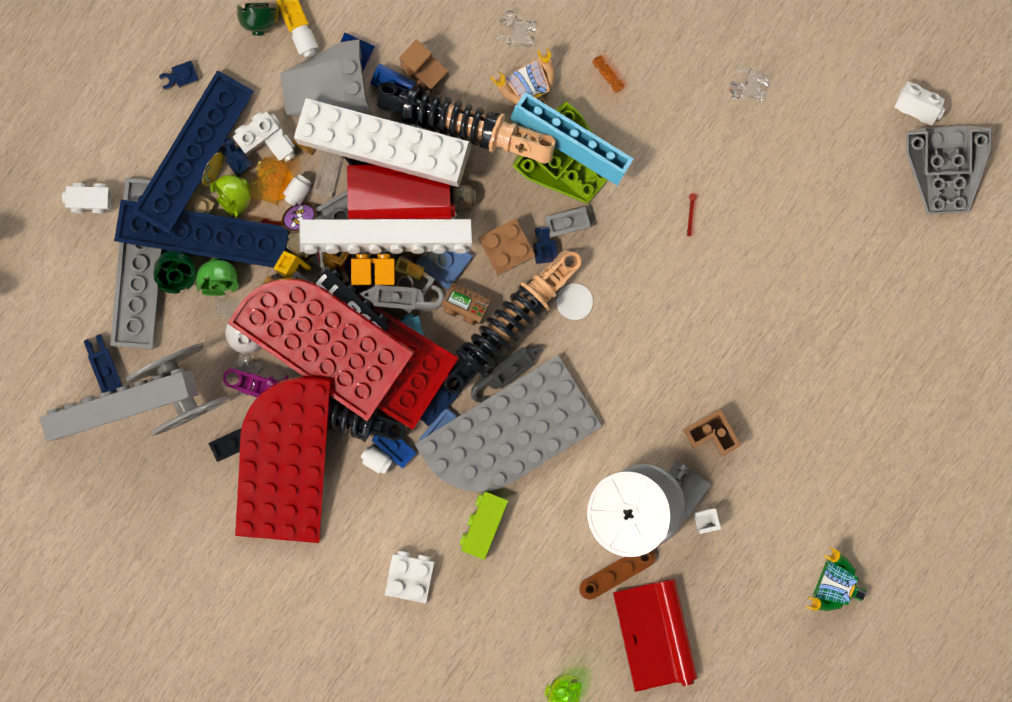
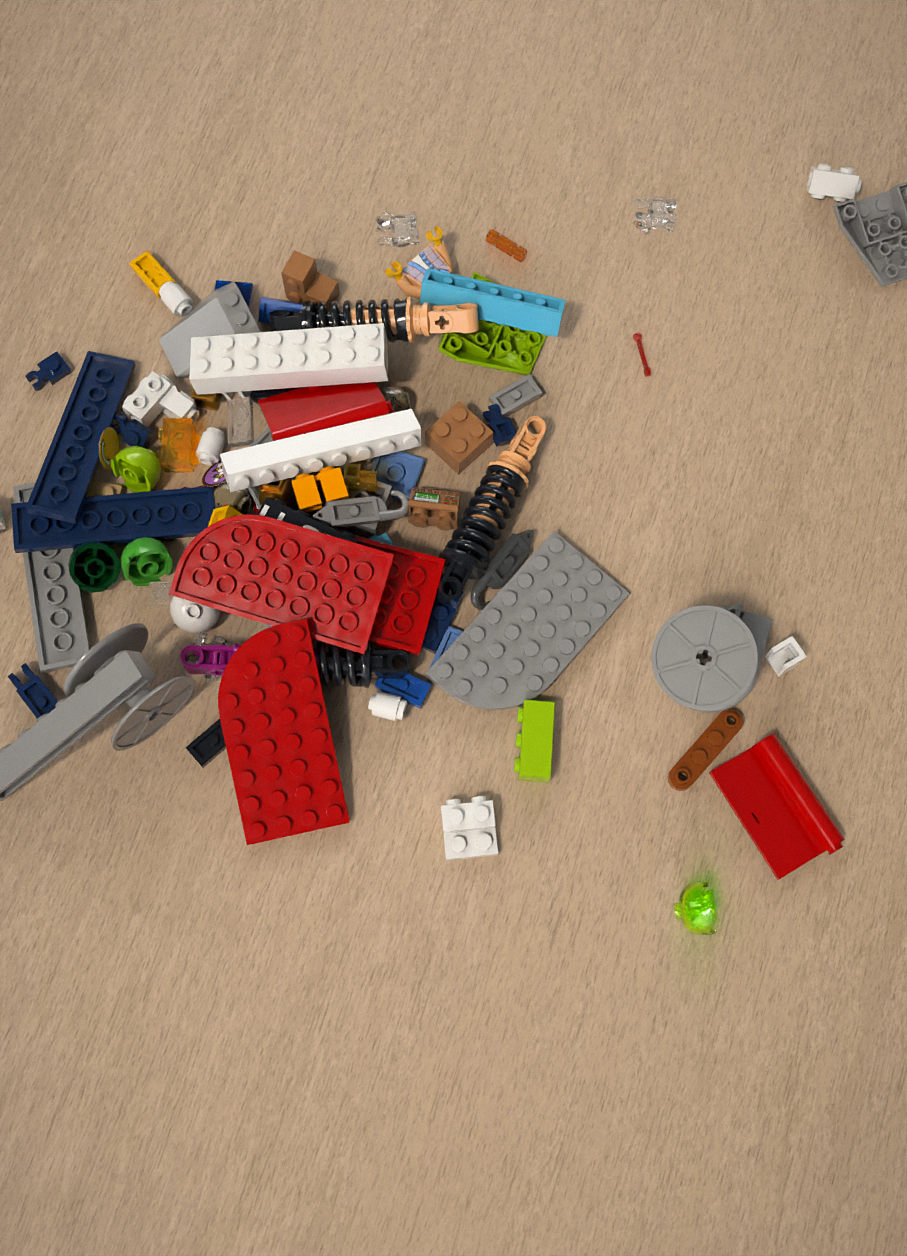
camera: 20 degrees left, 15 degrees down
(258, 17) = (118, 286): dark green cylinder -> none
(574, 301) = (551, 475): white sticker -> none
(715, 428) = (757, 556): medium nougat brick -> none

